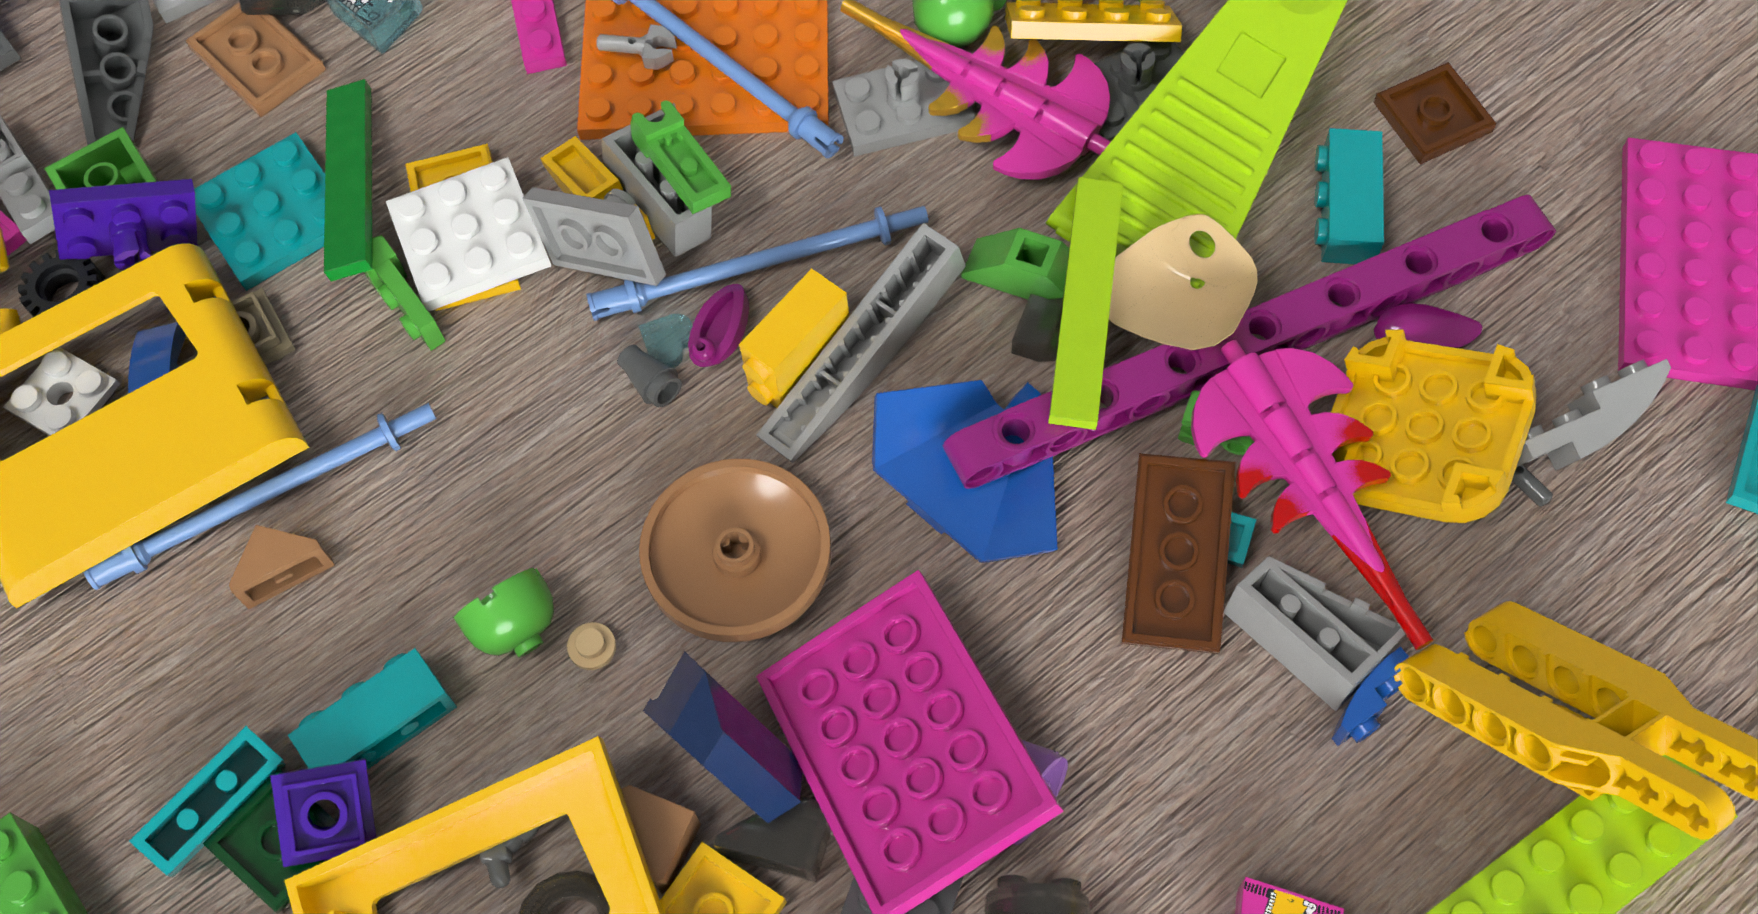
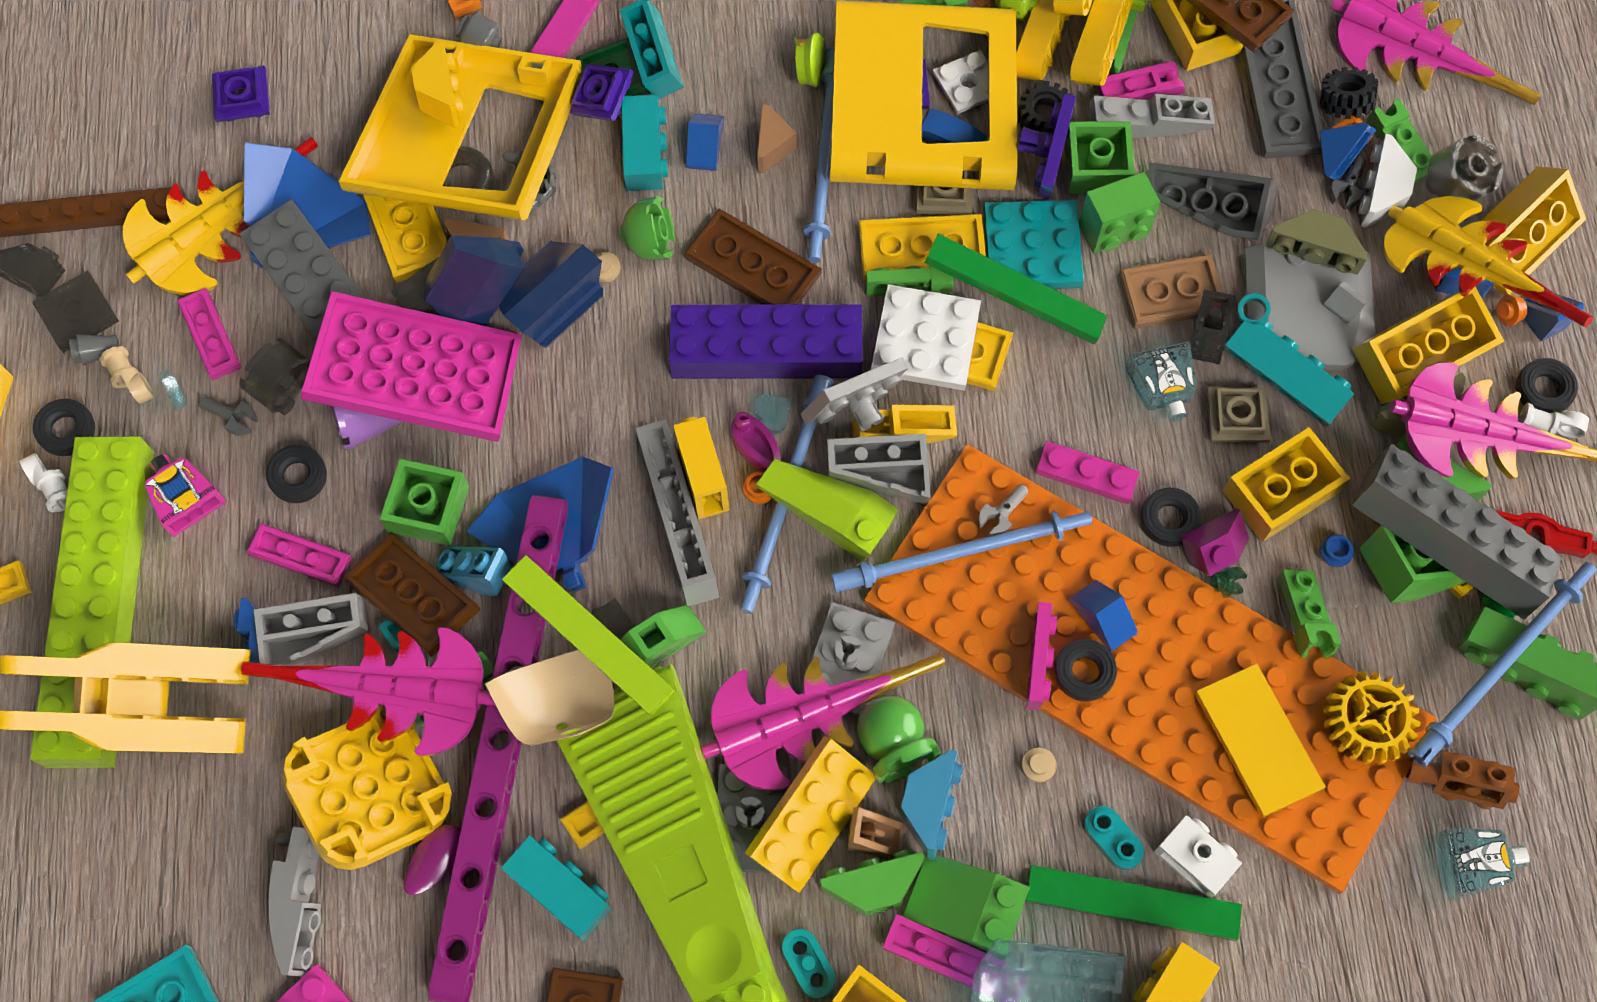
camera: 120 degrees right, 5 degrees up
(124, 588) = (810, 59): none -> lime piece
(183, 125) = (1119, 212): none -> bright green brick
(320, 650) = (704, 141): none -> blue slope
(341, 324) = (907, 241): none -> yellow tile
(477, 485) = (751, 262): none -> reddish brown tile
(582, 390) = (765, 341): none -> dark purple brick
(636, 660) = (553, 291): none -> dark blue helmet
(652, 378) = (746, 385): dark grey cone -> none
(680, 159) = (869, 465): bright green plate -> none
(735, 550) = (597, 361): medium nougat dish -> none
(750, 220) = (839, 510): none -> lime wedge
(768, 290) = (752, 492): none -> orange plate
(1061, 614) = (425, 502): none -> bright green brick
(1096, 499) = (475, 568): none -> dark azure slope
(1131, 849) = (301, 492): none -> black tyre
(1233, 735) = (299, 555): none -> dark pink tile
(1266, 224) = (582, 825): none -> yellow tile

